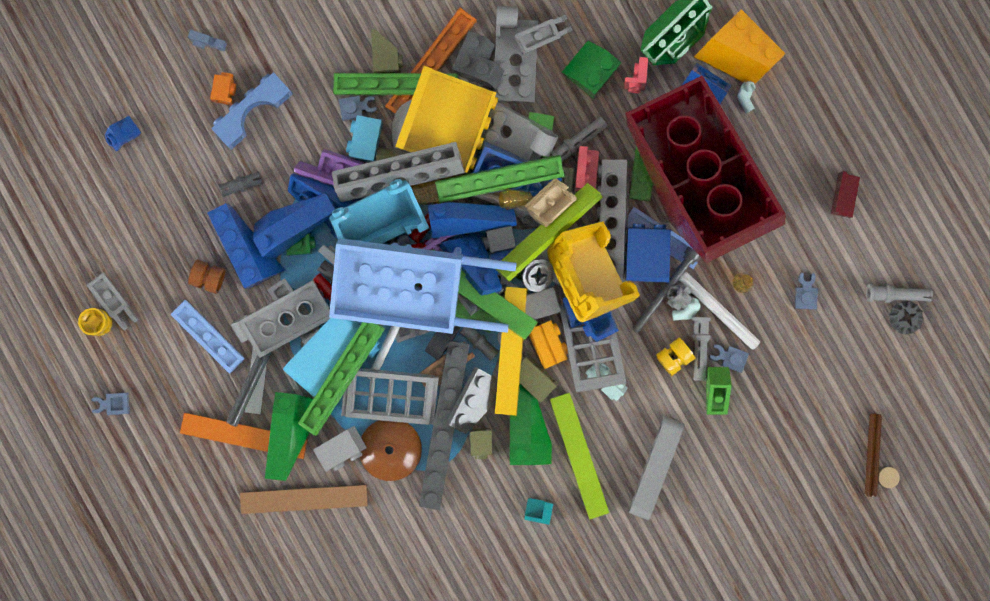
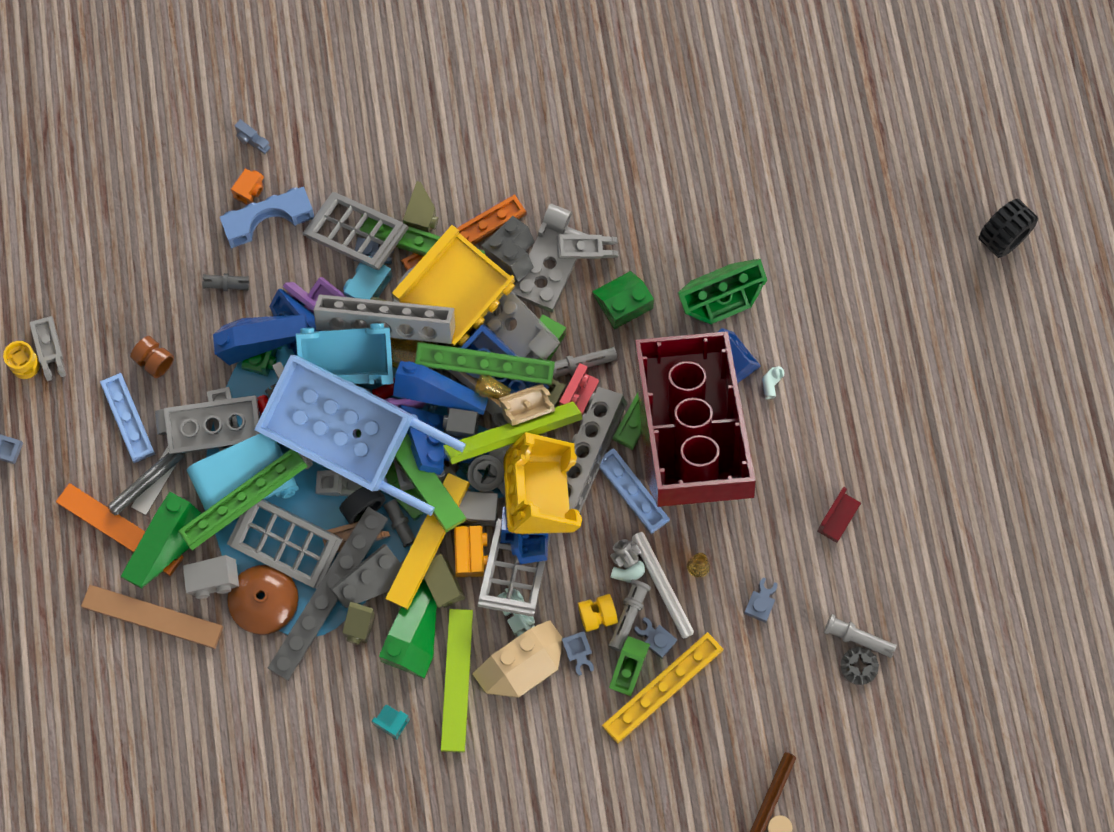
camera: 20 degrees right, 15 degrees down
(121, 133) = (130, 192): blue bracket -> none
(241, 249) = (200, 363): blue wedge -> none
(371, 100) = (387, 246): none -> light grey piece
(385, 348) = (304, 490): white bar -> none
(629, 421) = (522, 662): none -> tan wedge
(639, 78) = (665, 324): coral bracket -> none
(648, 253) = (609, 496): blue slope -> none
(656, 468) = (532, 722): light grey beam -> none
(670, 393) = (577, 648): none -> sand blue plate
(689, 258) = (652, 517): dark grey piece -> none
(741, 50) = (782, 333): light orange wedge -> none
(751, 397) = (662, 688): none -> yellow tile

